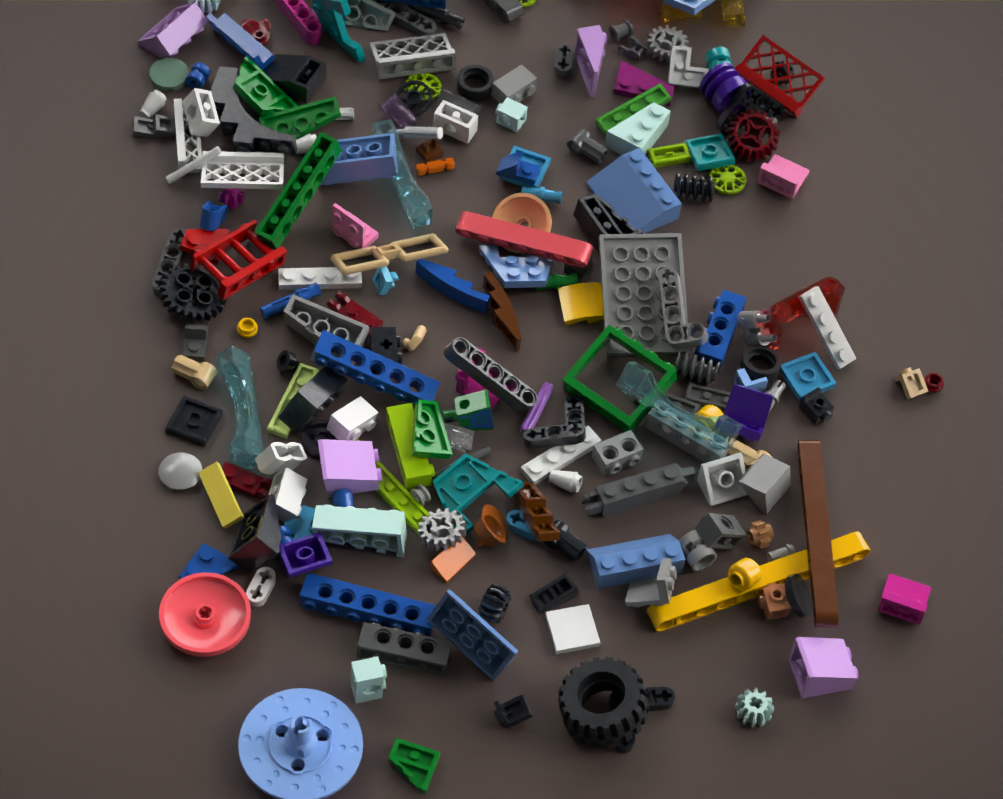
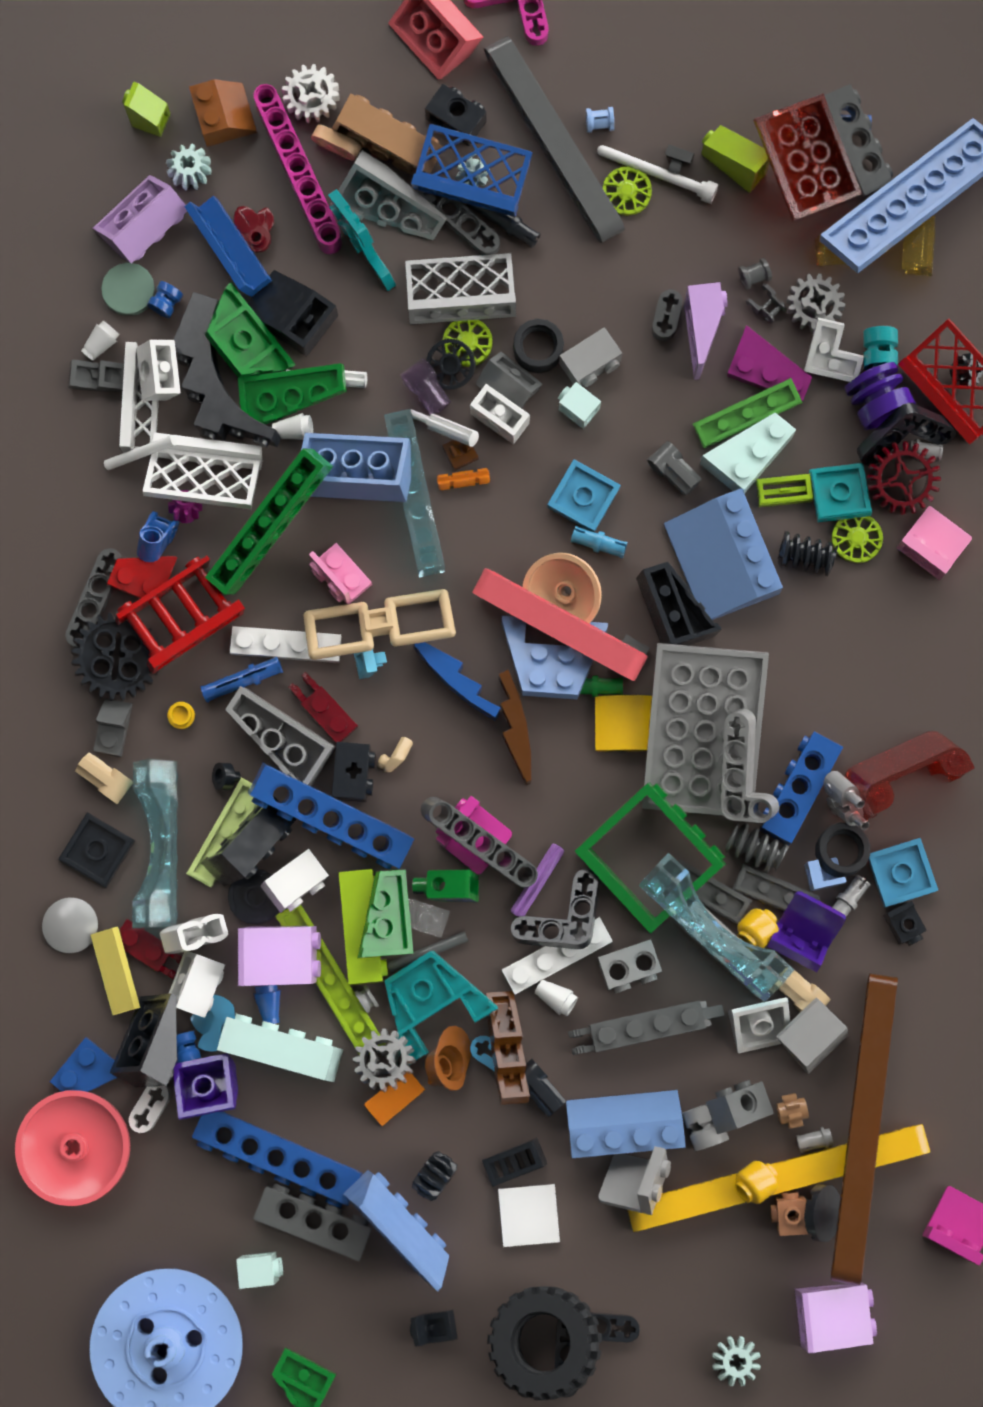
camera: 15 degrees right, 25 degrees up
(516, 169) = (571, 503): blue slope -> none
(827, 327) = (941, 813): white plate -> none

